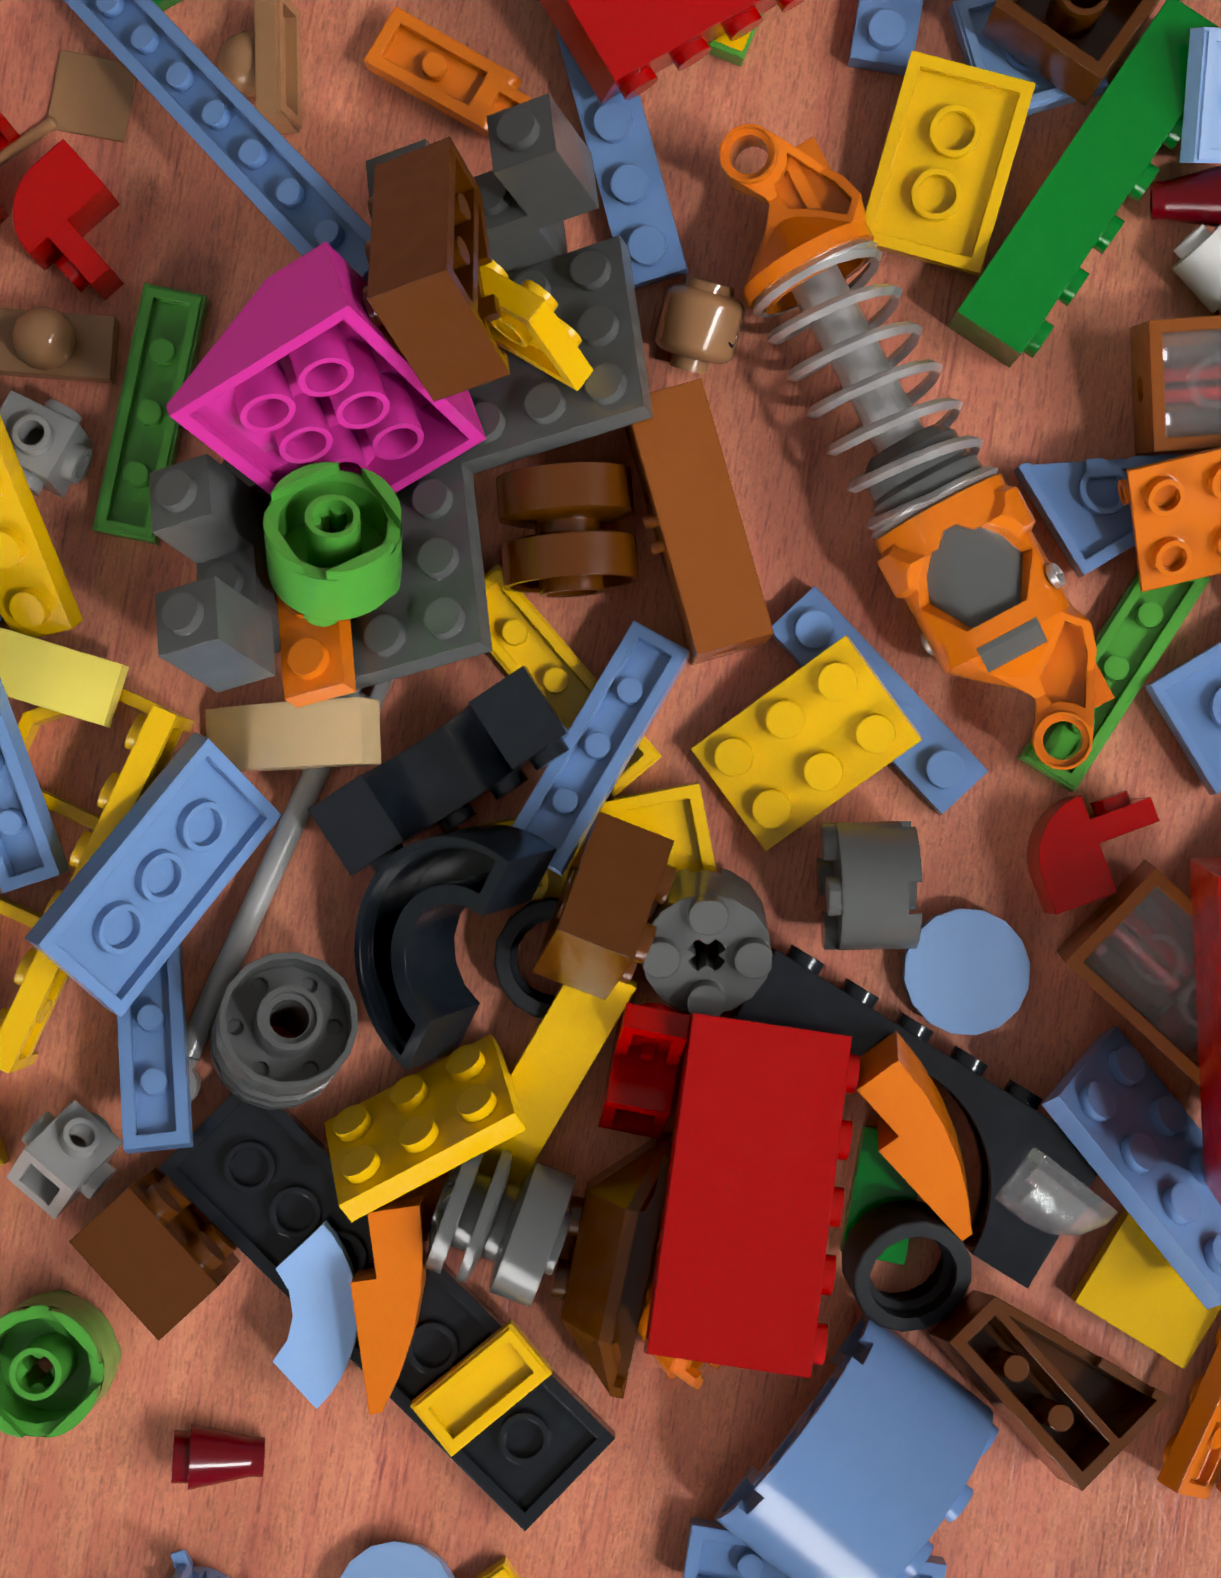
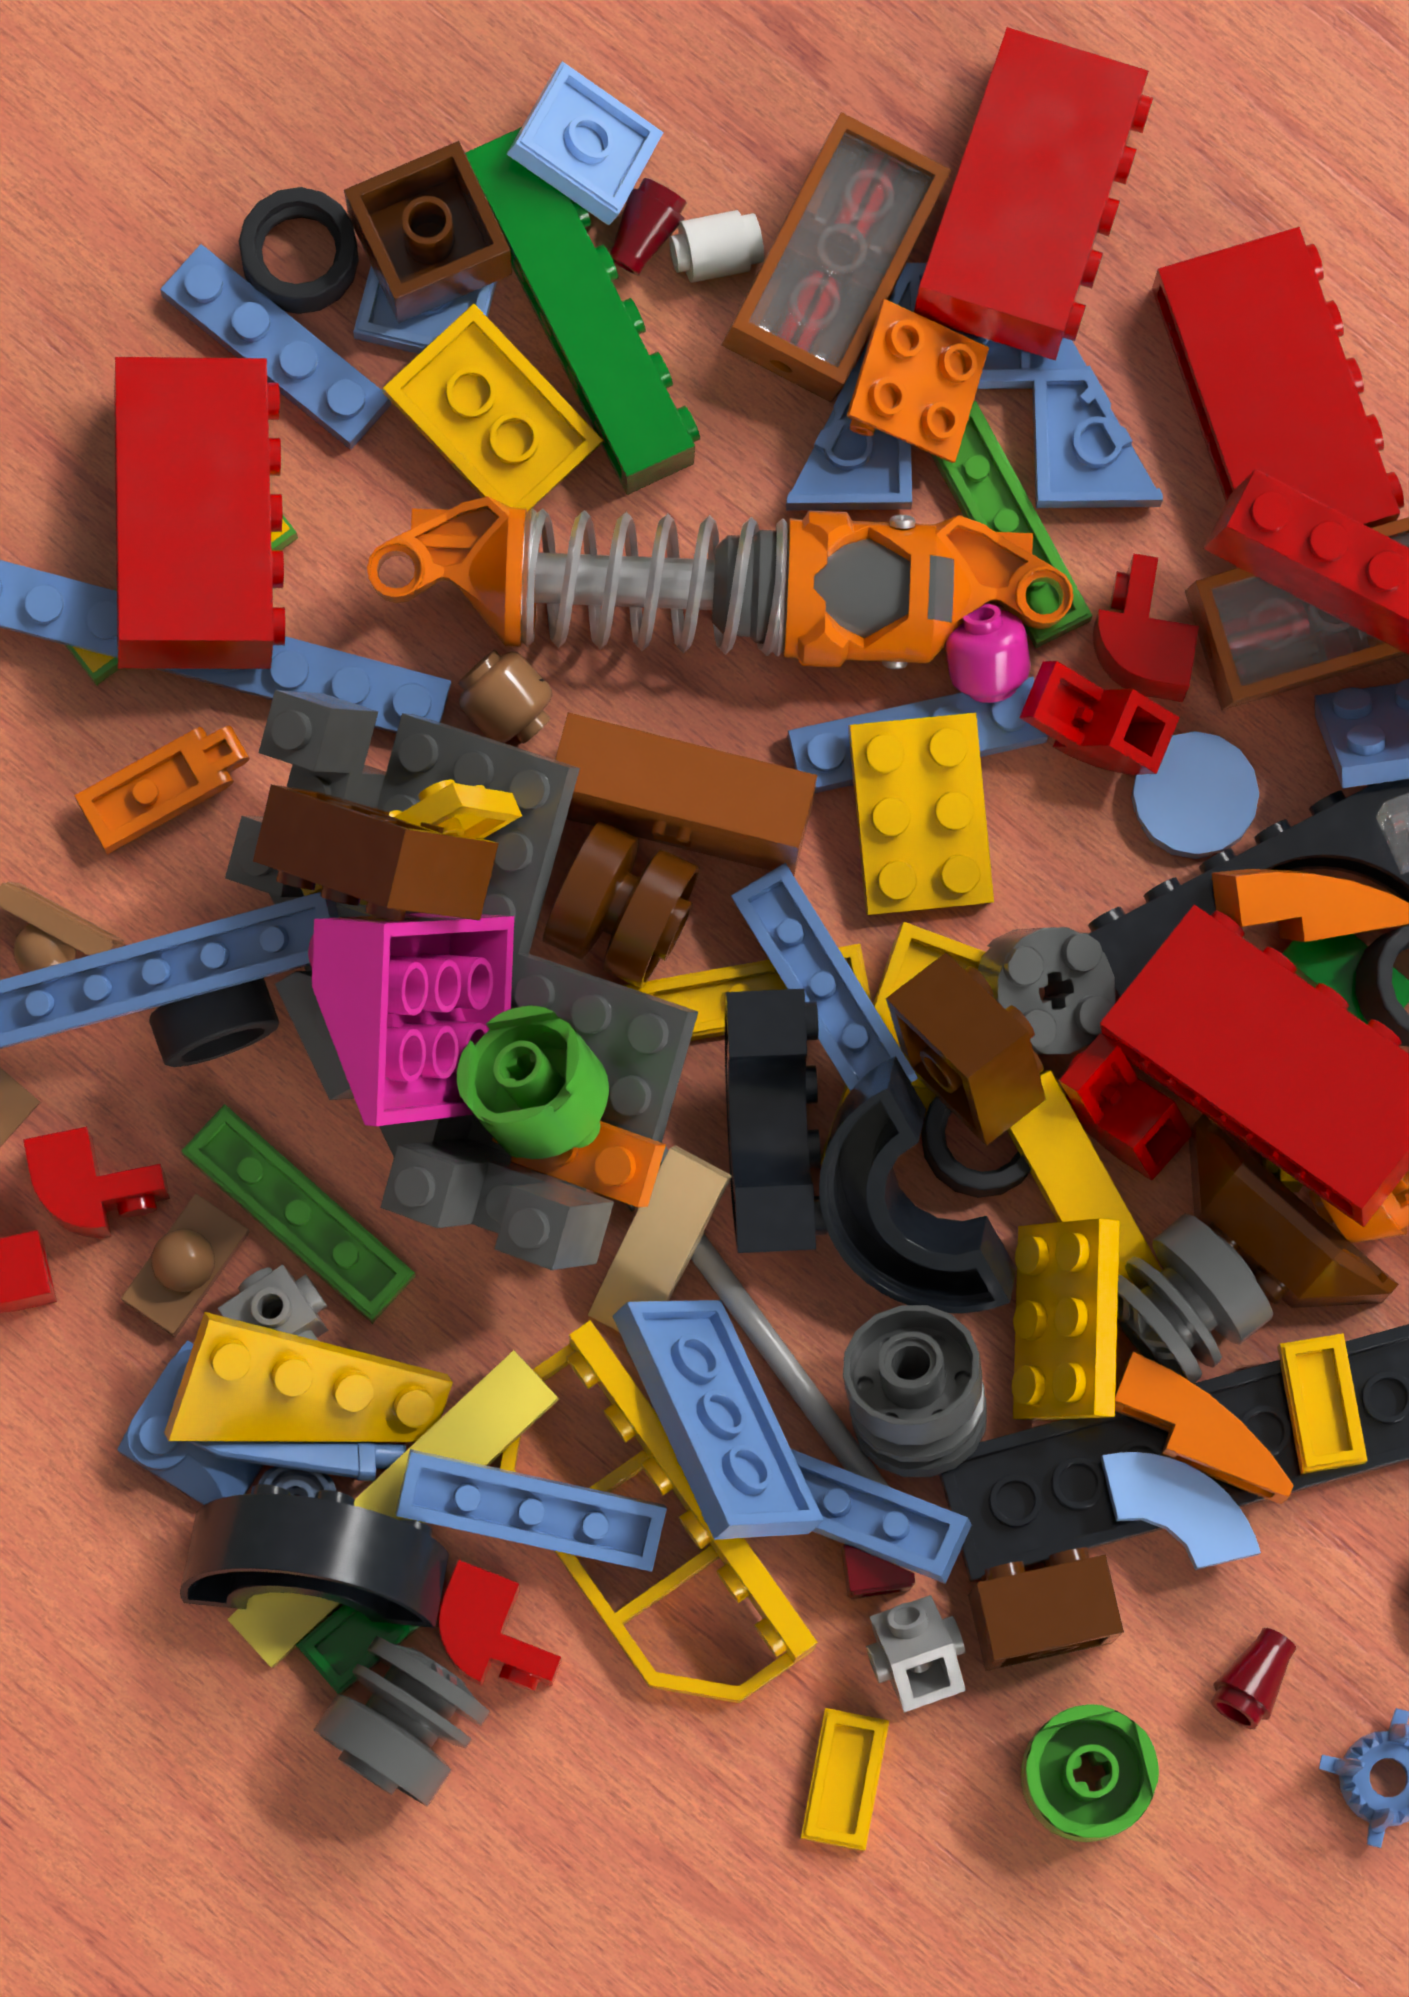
camera: 60 degrees left, 10 degrees down
(104, 1083) = (873, 1576): none -> dark red slope
(247, 232) = (213, 1023): none -> black tyre
(869, 885) = (1074, 826): dark grey brick -> none
(977, 852) = (1096, 725): none -> red brick
(982, 721) = (988, 654): none -> dark pink head

